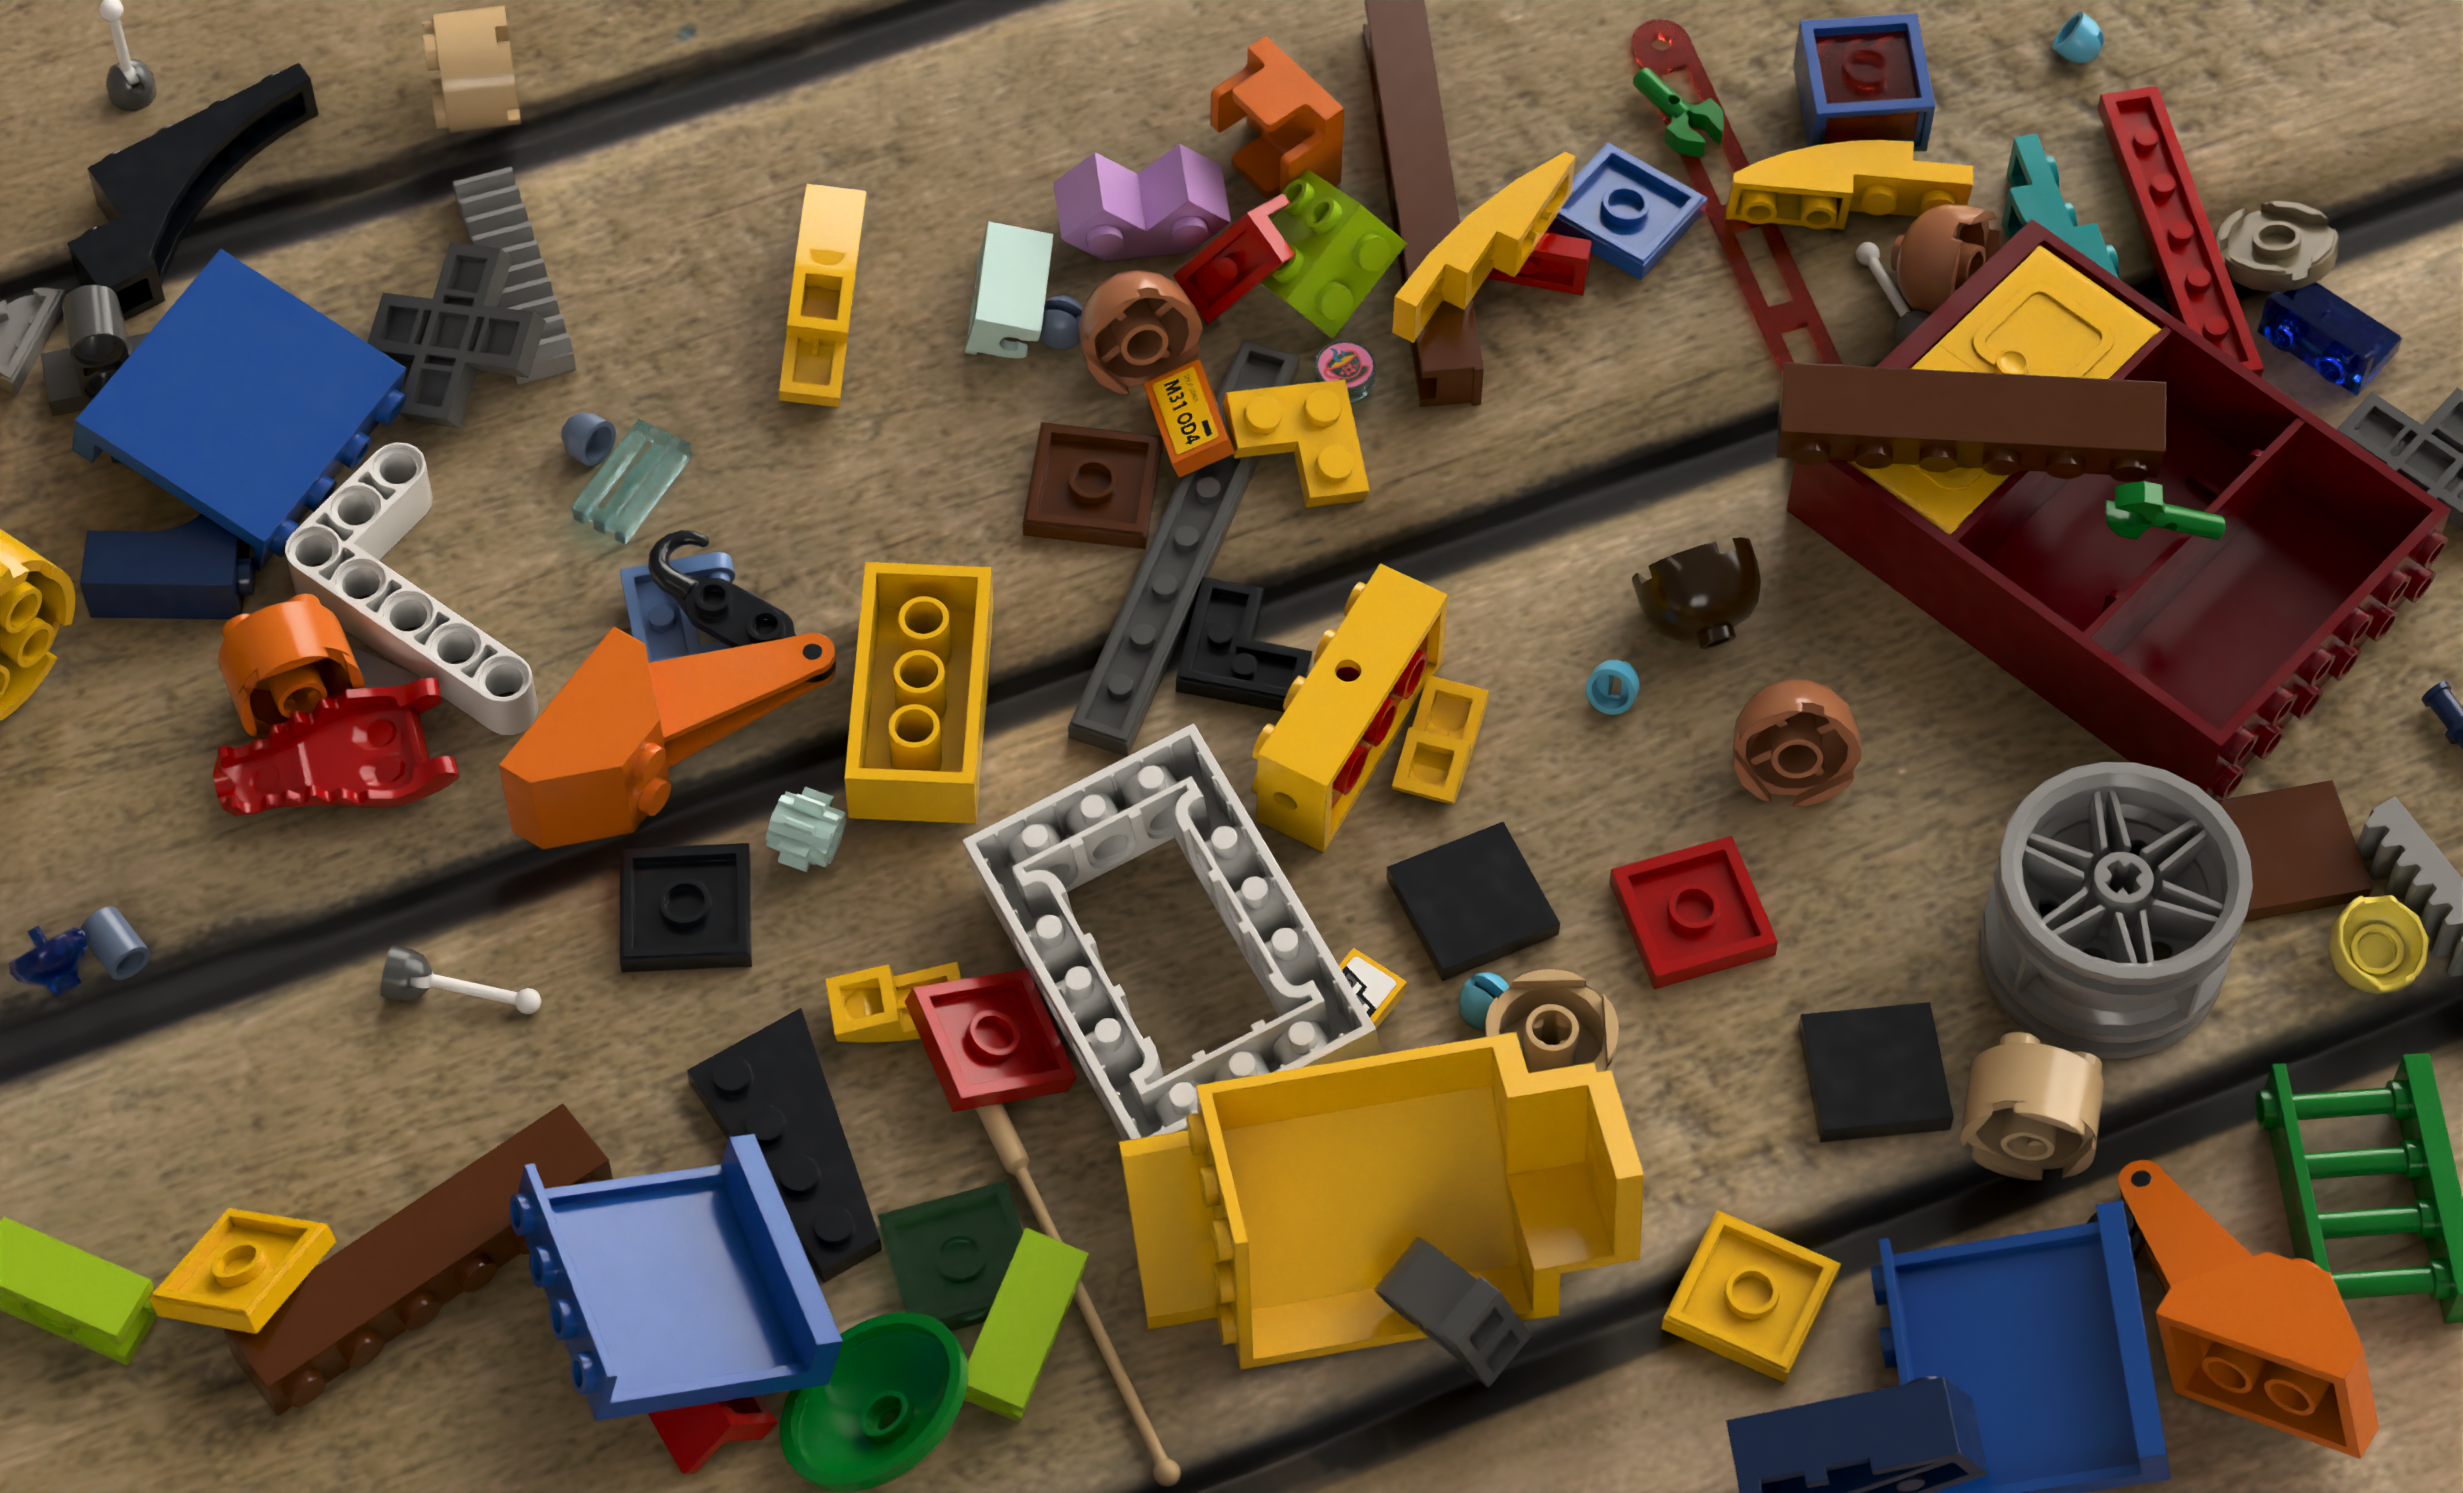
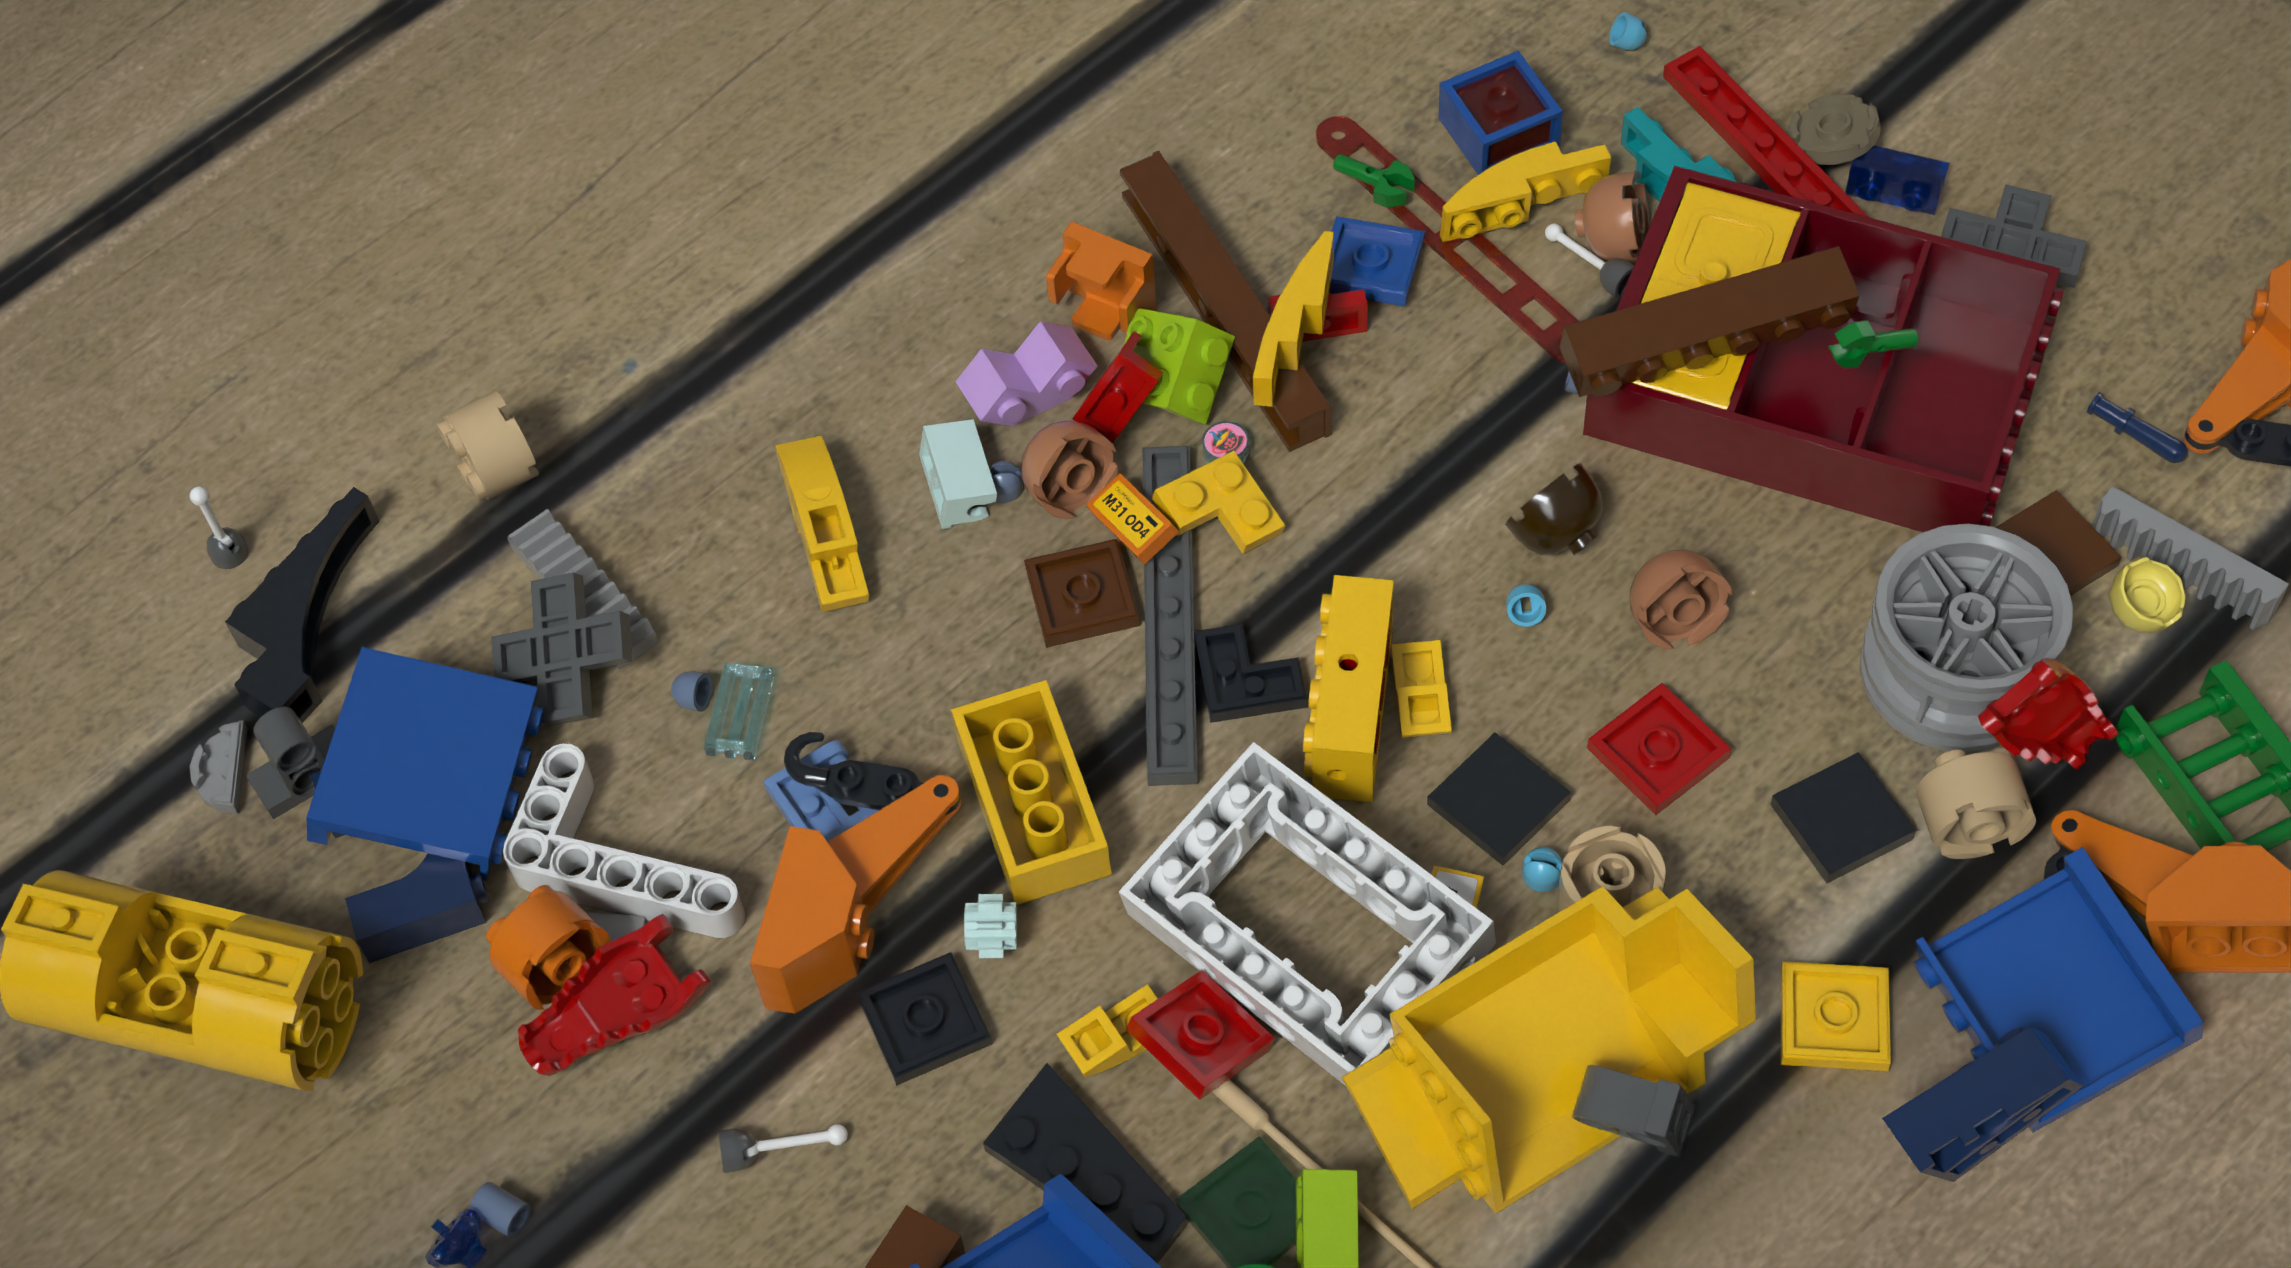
camera: 15 degrees left, 0 degrees up
(2161, 1035) = (2048, 716): none -> red animal

